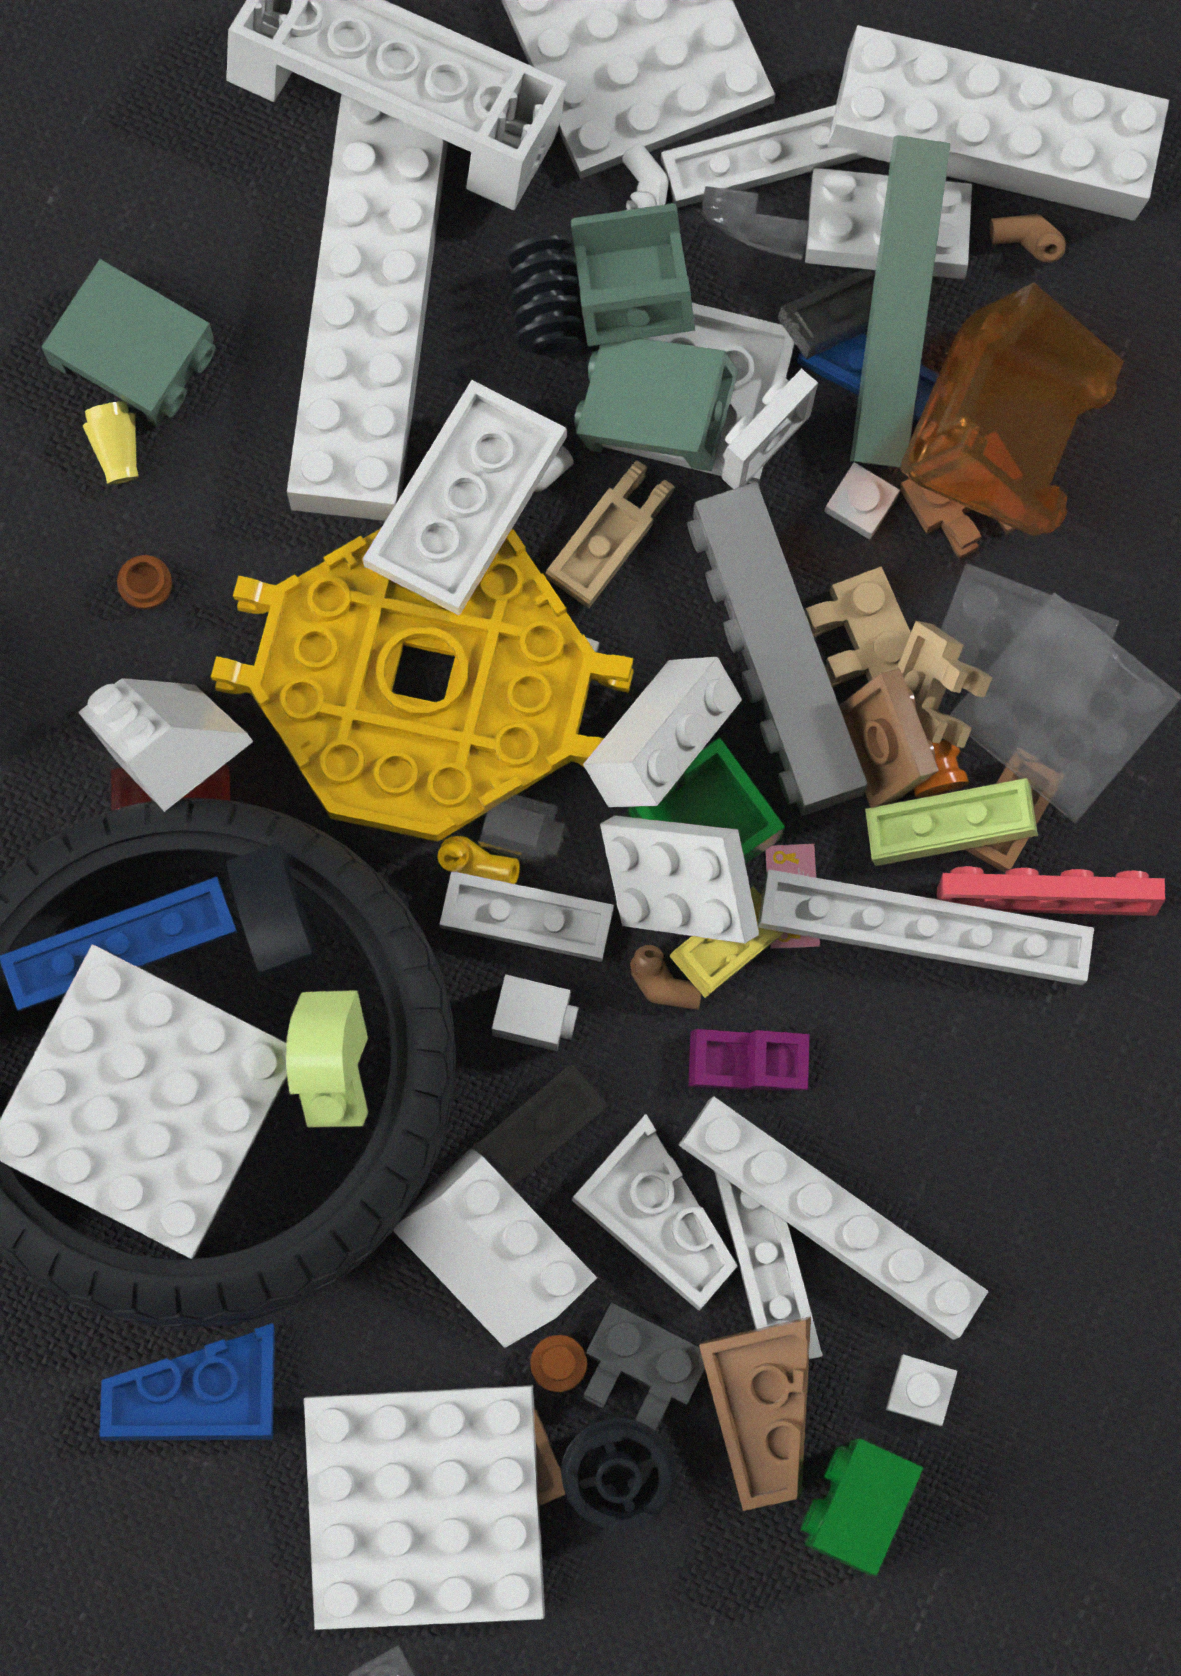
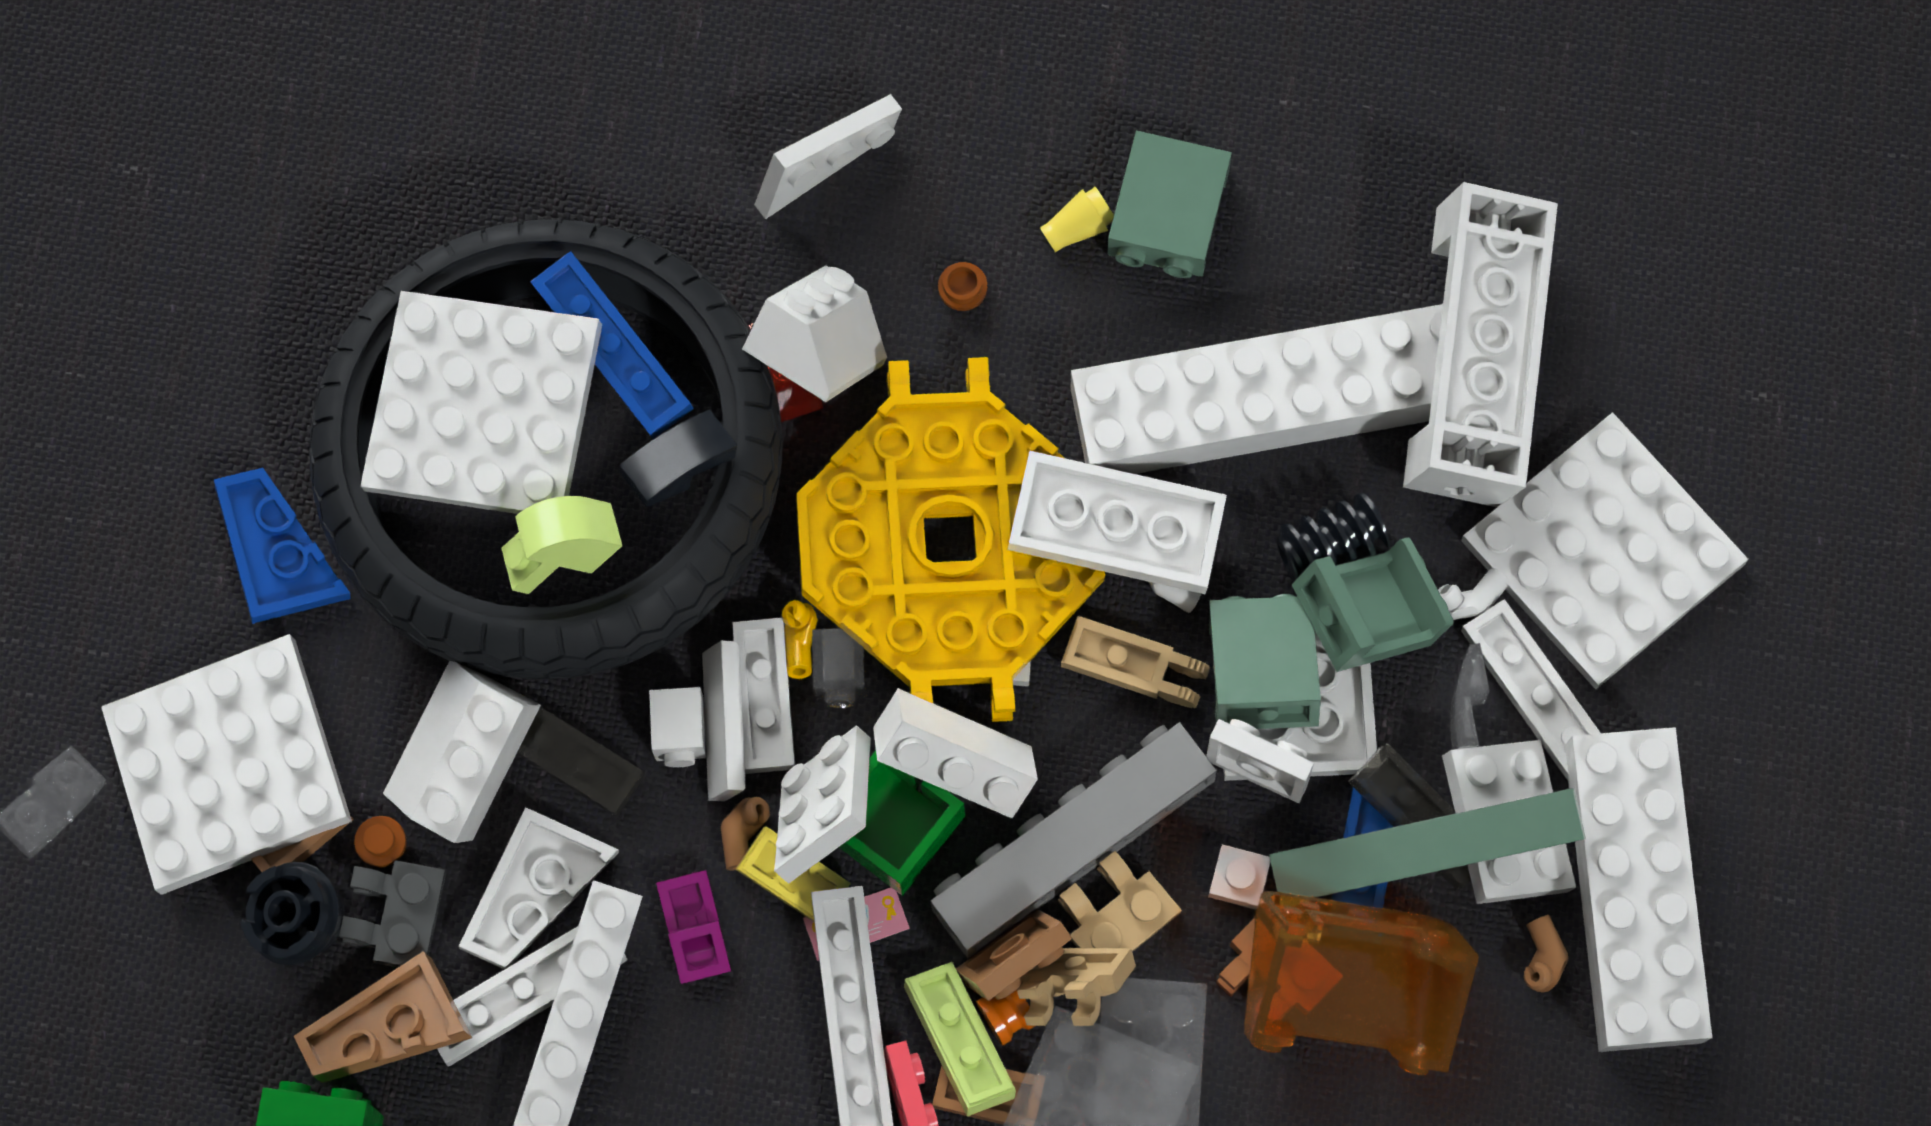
camera: 80 degrees right, 5 degrees down
(585, 973) = (723, 721): none -> white tile

